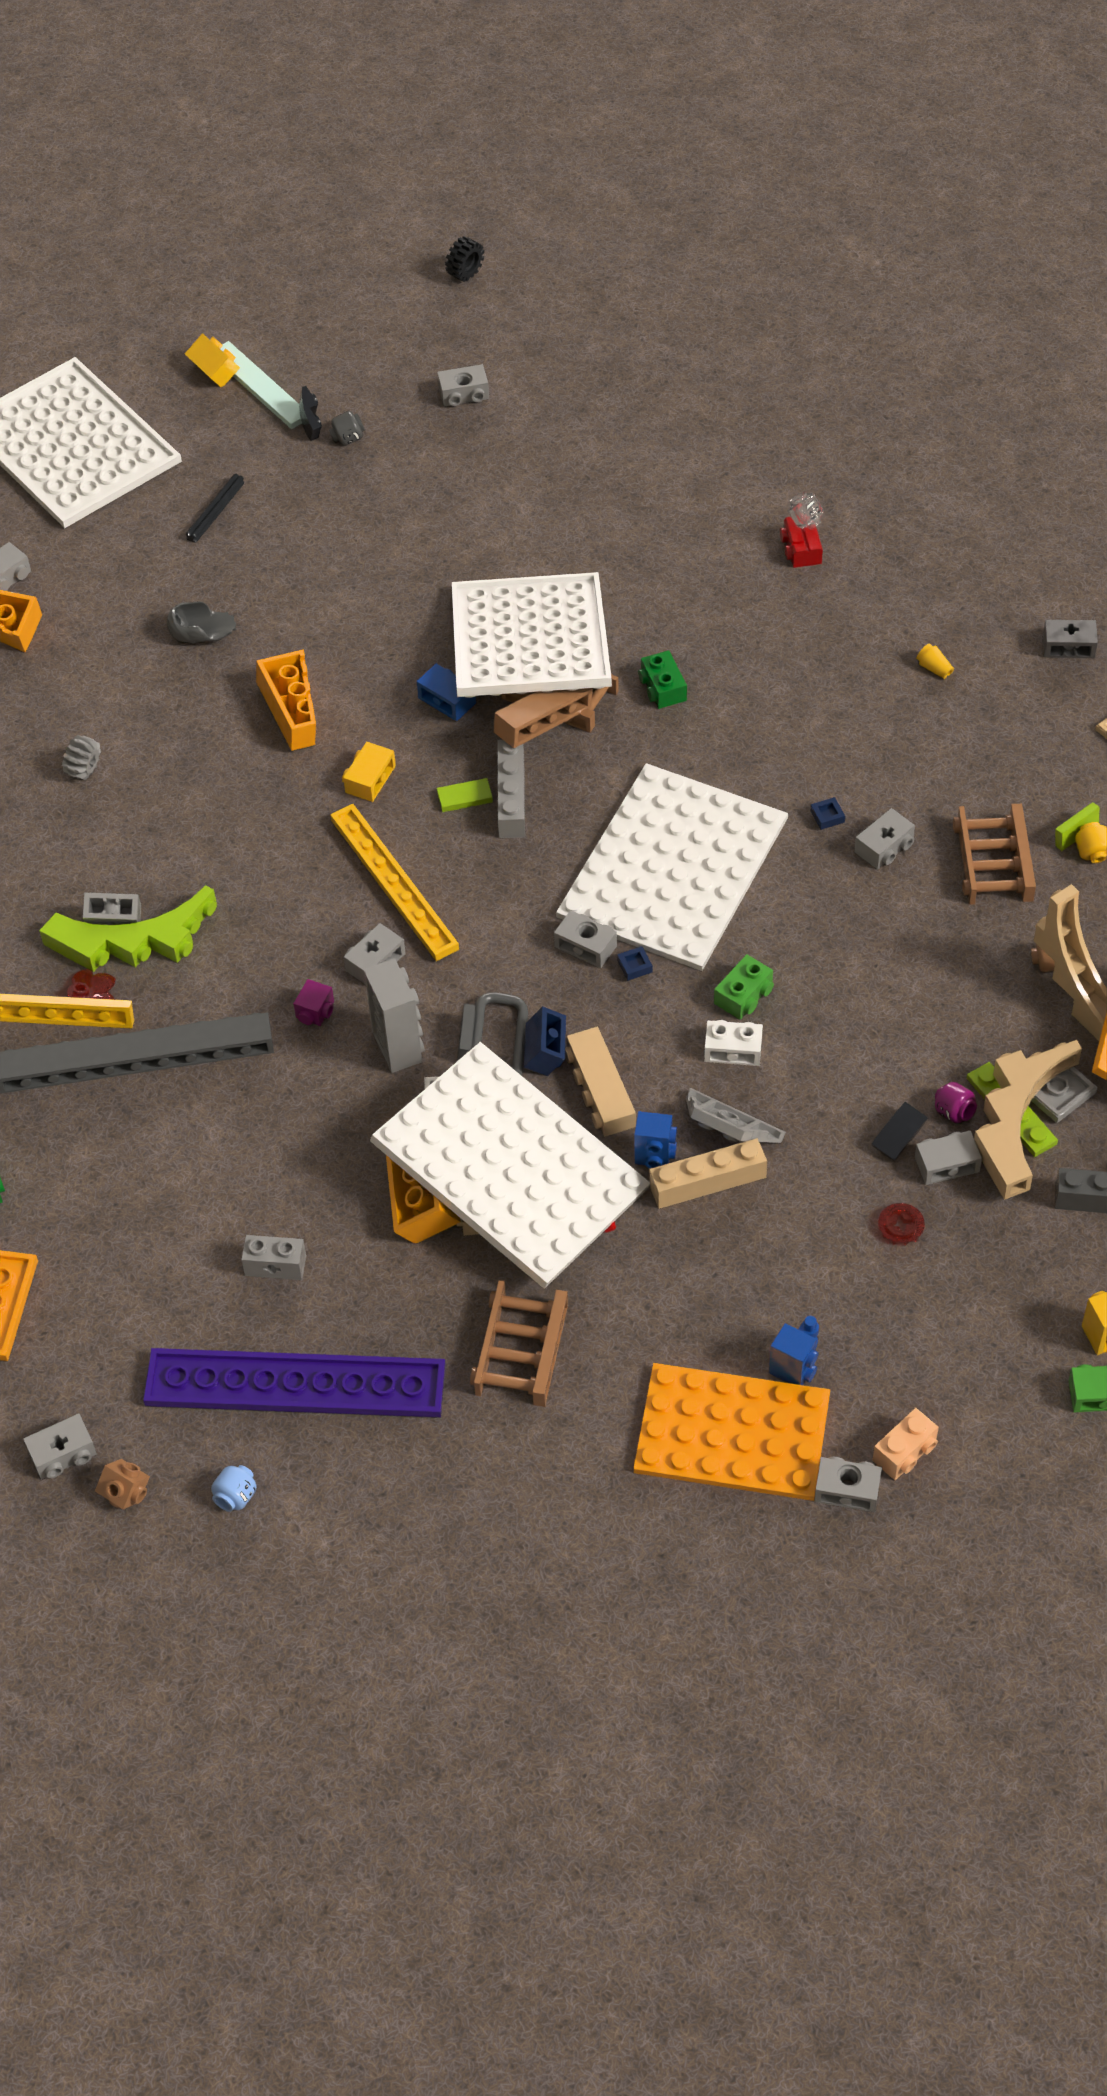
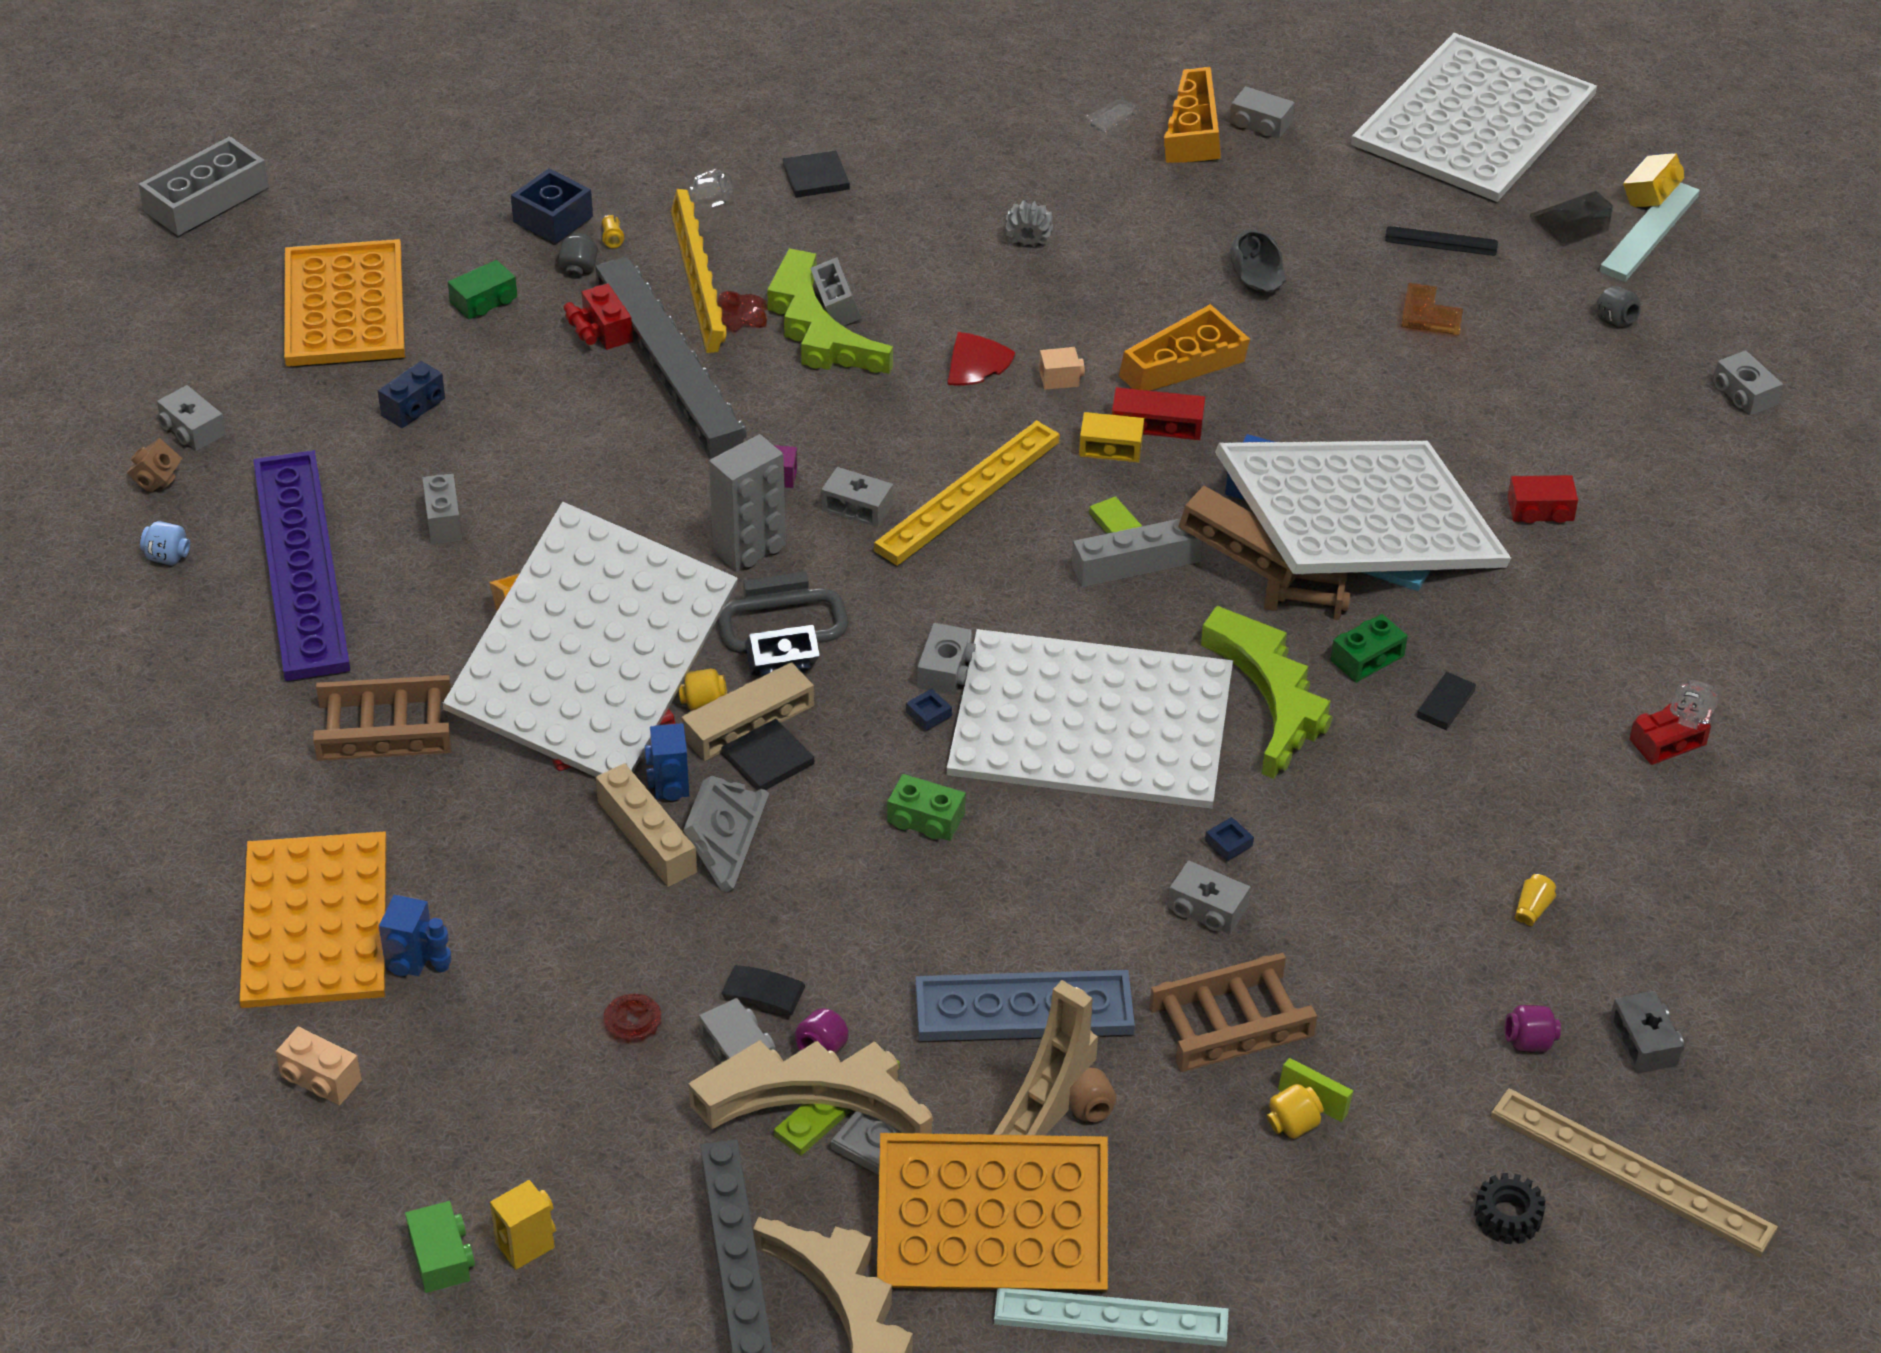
camera: 70 degrees right, 10 degrees down
(63, 1091) = (601, 317): none -> red brick
(107, 1258) = (411, 394): none -> dark blue brick
(226, 420) = (1576, 218): none -> clear smoke slope
(231, 837) = (977, 358): none -> red brick
(271, 784) = (1060, 368): none -> light nougat brick
(301, 543) = (1423, 314): none -> clear orange plate
(308, 407) = (1619, 265): black slope -> none
(359, 725) = (1163, 412): none -> red brick
(543, 536) = (1542, 498): none -> red brick
(571, 1101) = (702, 688): none -> yellow head
(649, 1080) = (768, 755): none -> black tile
(681, 739) = (1282, 681): none -> lime arch
(726, 653) = (1446, 701): none -> black tile
(733, 1042) = (841, 813): white brick -> none
(858, 1496) = (258, 1024): light grey brick -> none
(954, 975) = (1016, 1004): none -> sand blue plate
(1052, 696) = (1532, 1028): none -> magenta head

